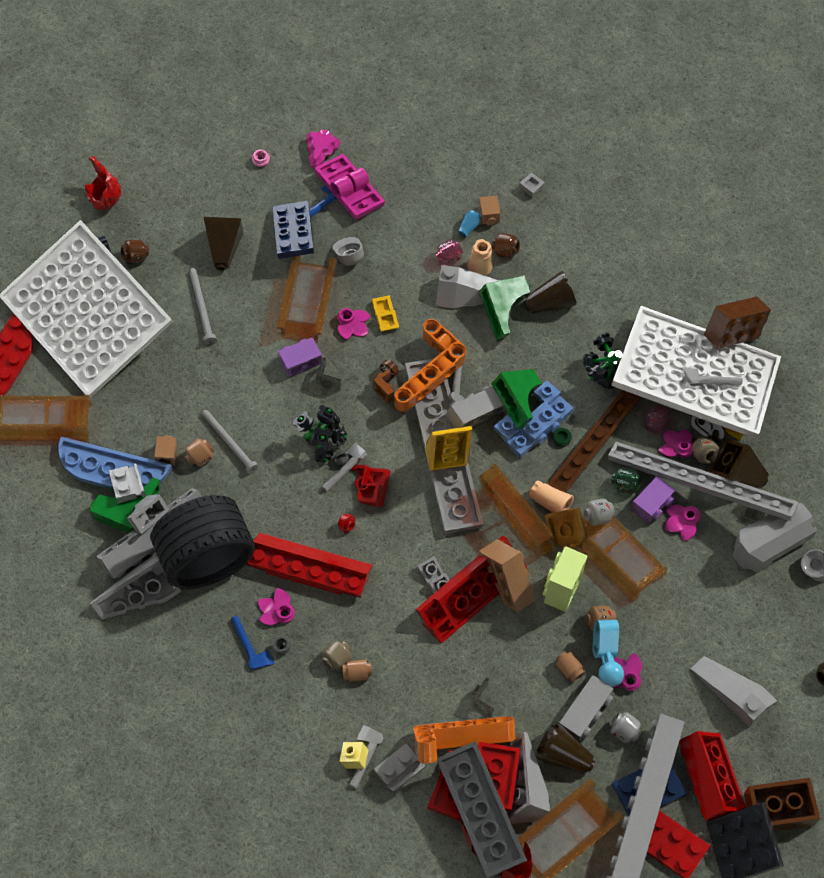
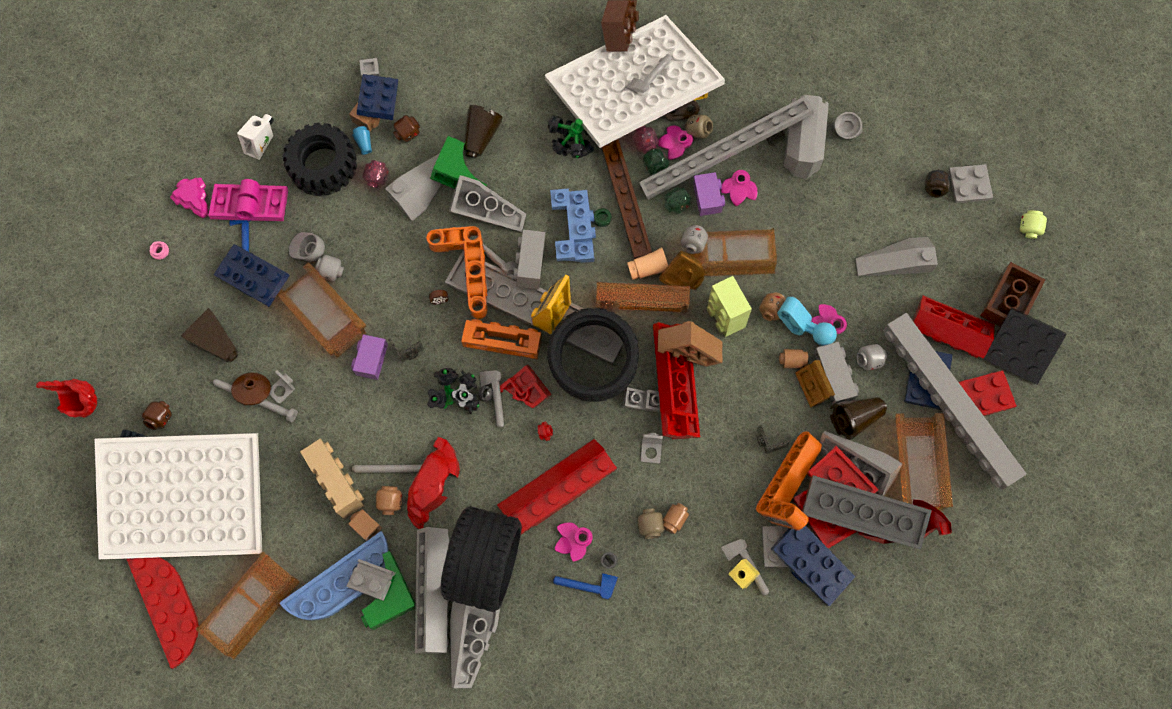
camera: 45 degrees left, 10 degrees up
(147, 513) = (415, 581): light grey arch -> none
(183, 402) = (332, 478): none -> tan wedge
(206, 297) = (252, 394): none -> reddish brown dish
(232, 315) = (284, 381): none -> light grey bracket
(233, 468) = (428, 485): none -> red animal
(345, 277) = (329, 268): none -> light grey head
(354, 325) = (376, 294): dark pink plate -> none
(378, 417) = (528, 339): none -> orange brick
(382, 387) = (451, 315): dark orange bracket -> none
(384, 313) = (386, 263): yellow slope -> none
(405, 150) = (256, 135): none -> white torso
(405, 606) = (654, 441): none -> light grey bracket
(406, 803) = (813, 564): none -> dark blue plate
(425, 186) = (313, 139): none -> black tyre
(427, 471) = (582, 319): none -> black tyre
(480, 258) = (403, 155): light nougat plant -> none
(490, 340) = (482, 204): none -> light grey wedge
(511, 206) = (377, 97): none -> dark blue plate
(513, 391) = (544, 222): green arch -> none
(562, 697) = (815, 383): none -> pearl gold plate
(645, 439) = (655, 161): none -> clear green head
(740, 464) = (732, 113): dark brown slope -> none

